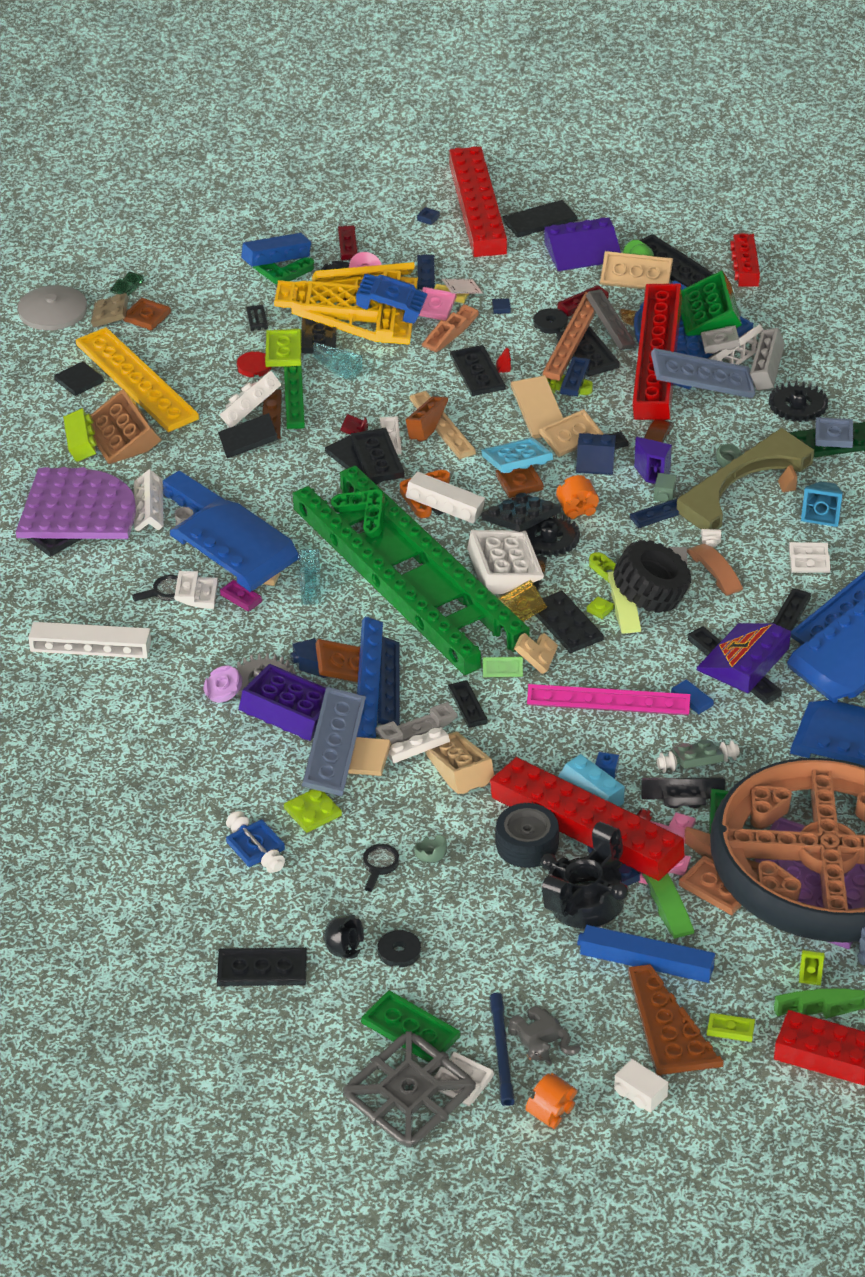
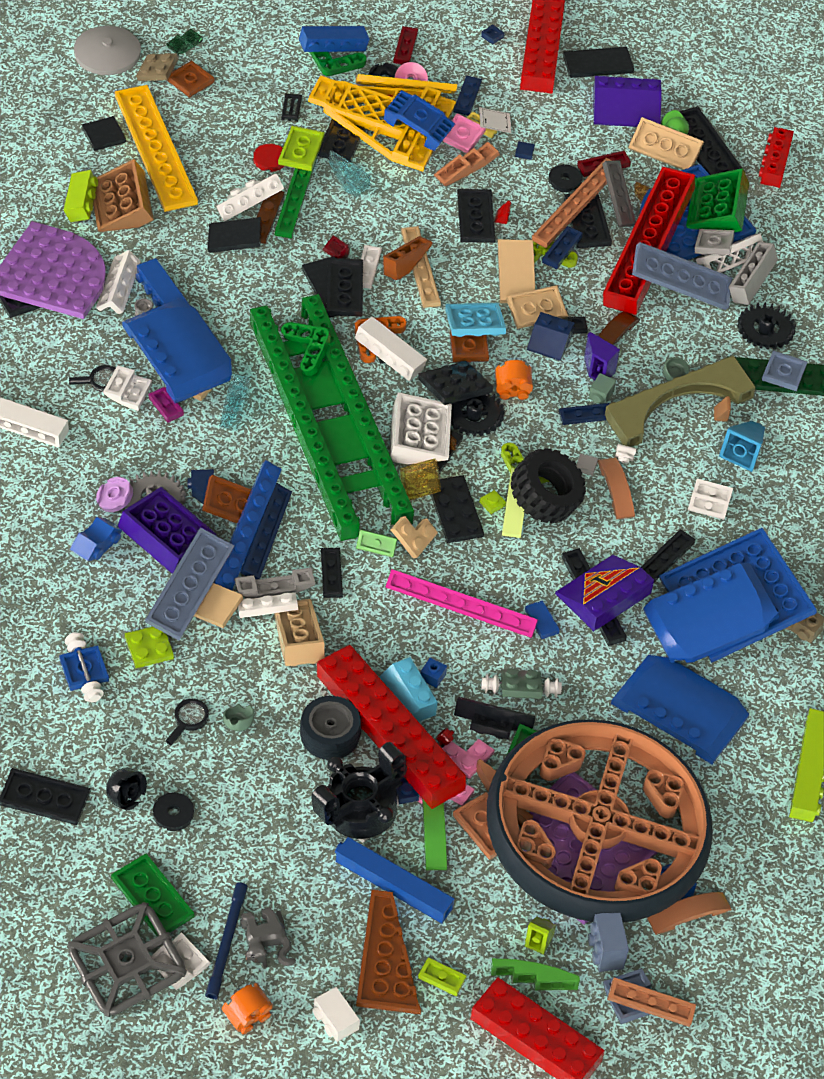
camera: 10 degrees right, 10 degrees up
(221, 726) = (96, 539): none -> blue brick

